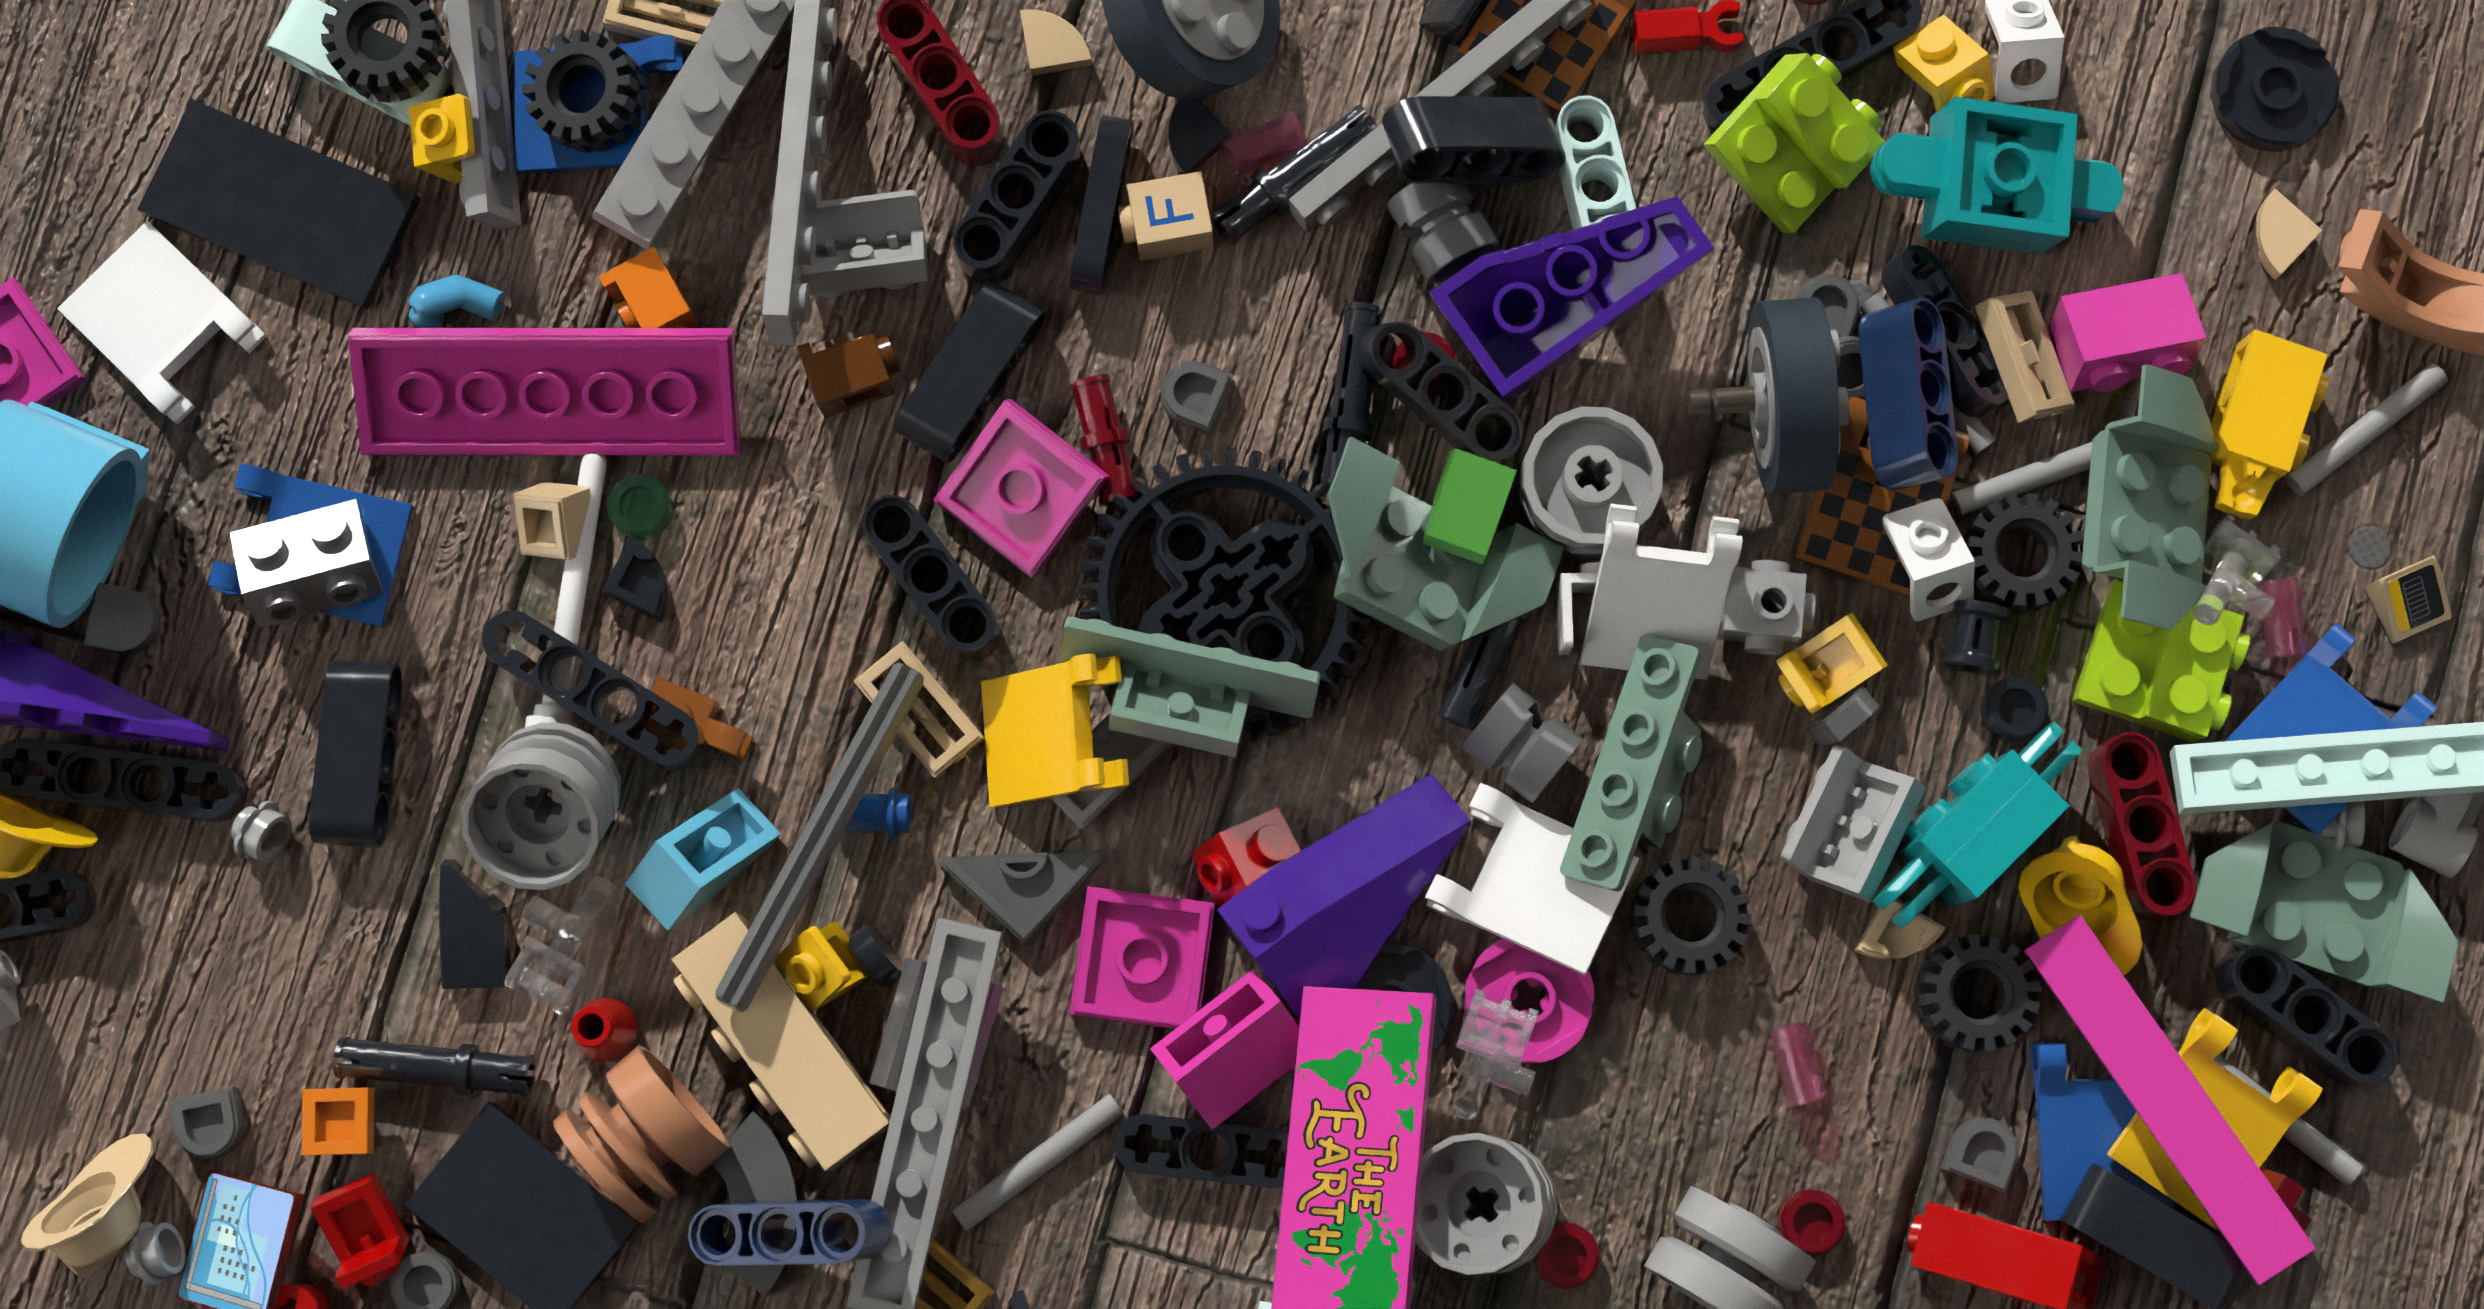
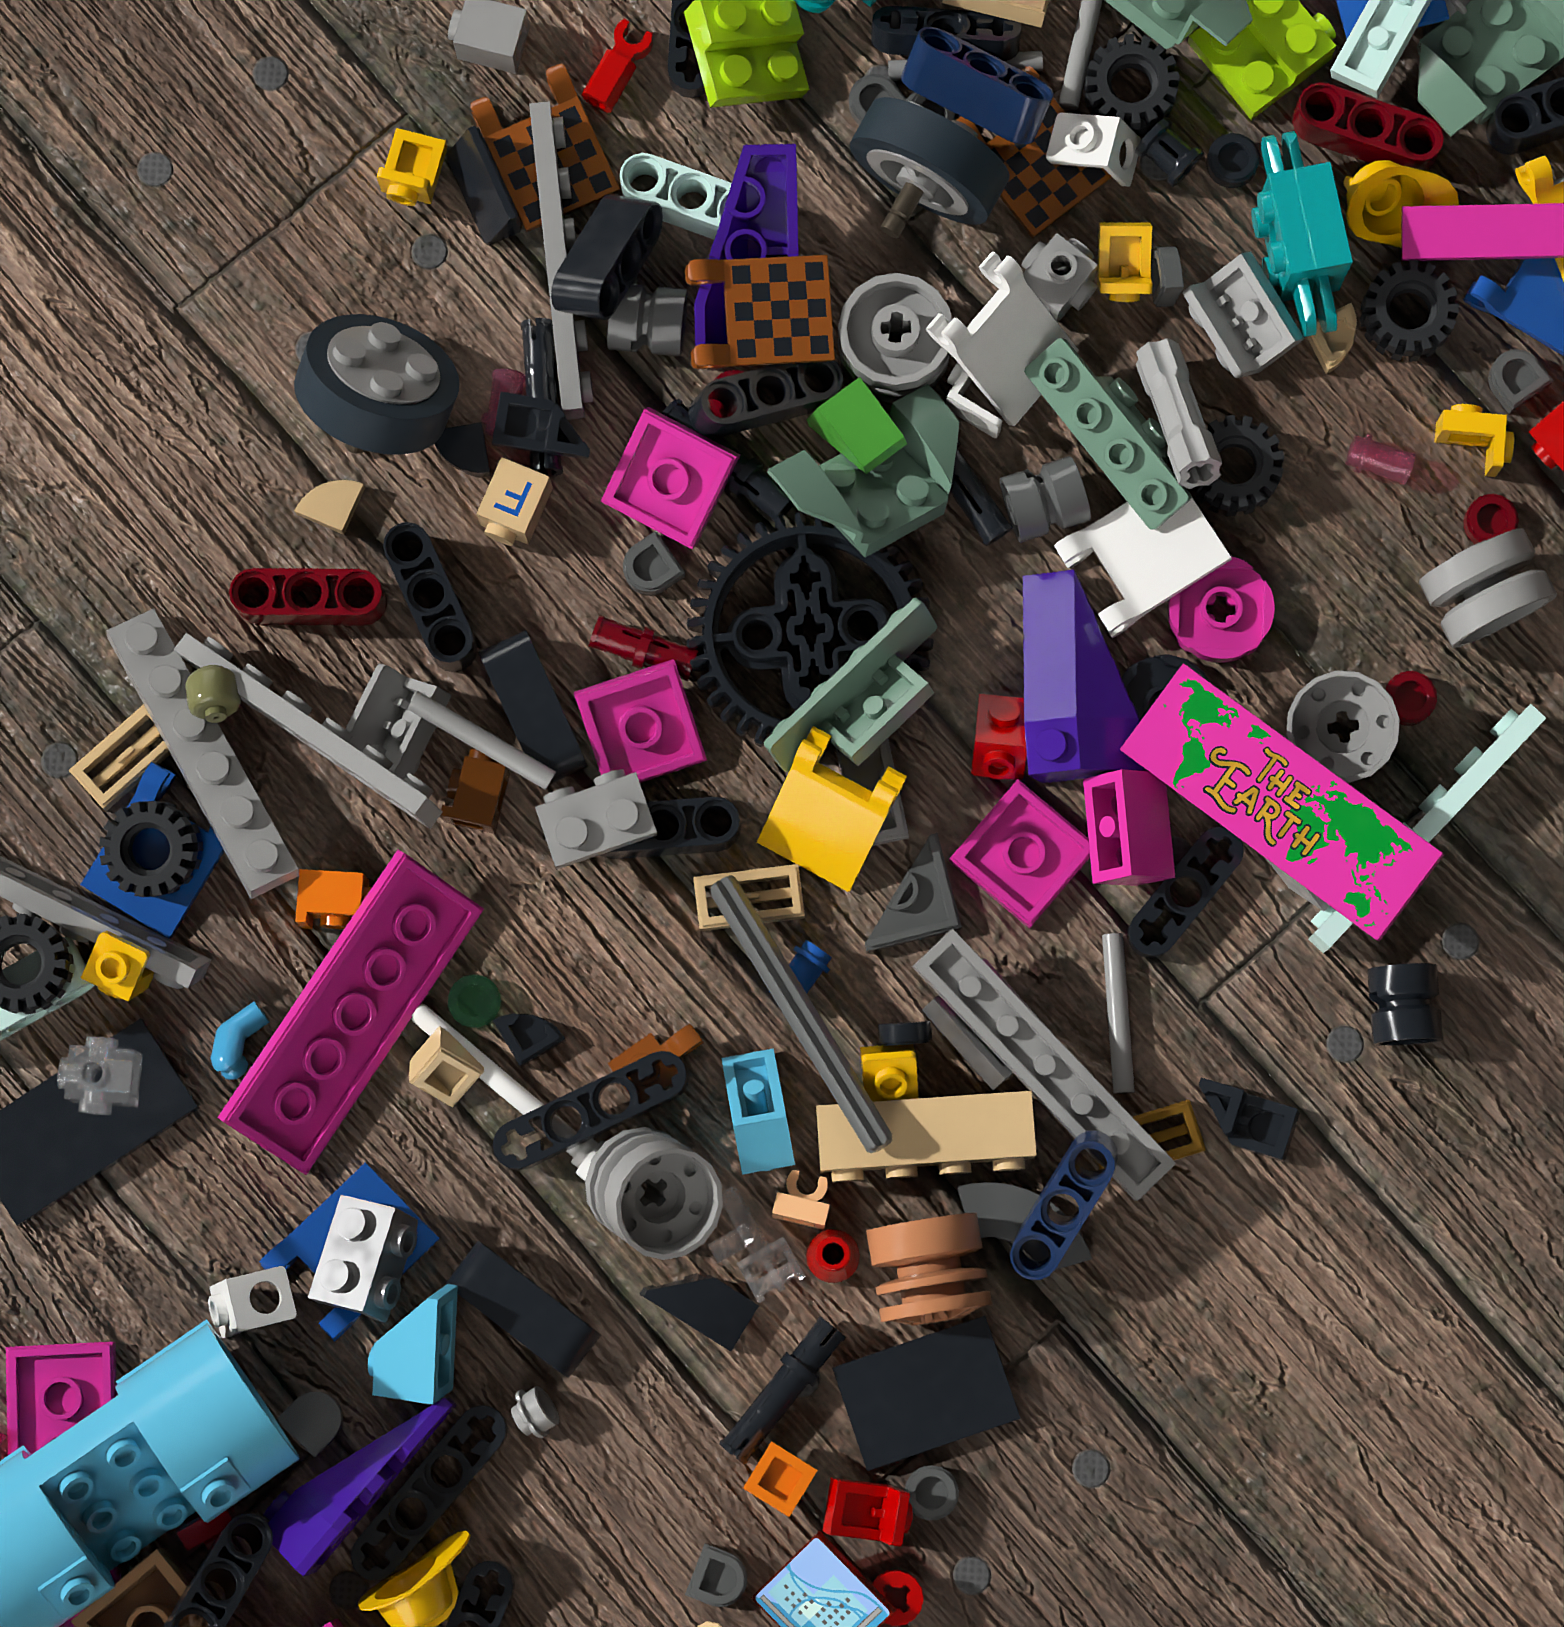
camera: 55 degrees left, 0 degrees up
(153, 315) = (102, 1261): white flag -> none
(176, 465) = (231, 1303): none -> white bracket
(241, 679) = (419, 1352): none -> medium azure slope
(323, 189) = (119, 1076): none -> clear brick
(630, 966) = (802, 1208): none -> light nougat tile
(772, 46) = (212, 693): none -> olive piece
(888, 502) = (595, 818): none -> light grey bracket
(896, 338) = (481, 740): none -> light grey bar
(1101, 204) = (474, 542): black beam -> none
(1254, 184) = (535, 427): none -> black slope
(1295, 353) = (670, 477): none -> dark pink tile
(1497, 1040) = (1241, 645): clear arm -> none
(1526, 338) = (772, 308): none -> dark orange flag
(1702, 820) = (1188, 441): none -> light grey axle
(1896, 1136) = (1469, 426): none -> yellow bracket

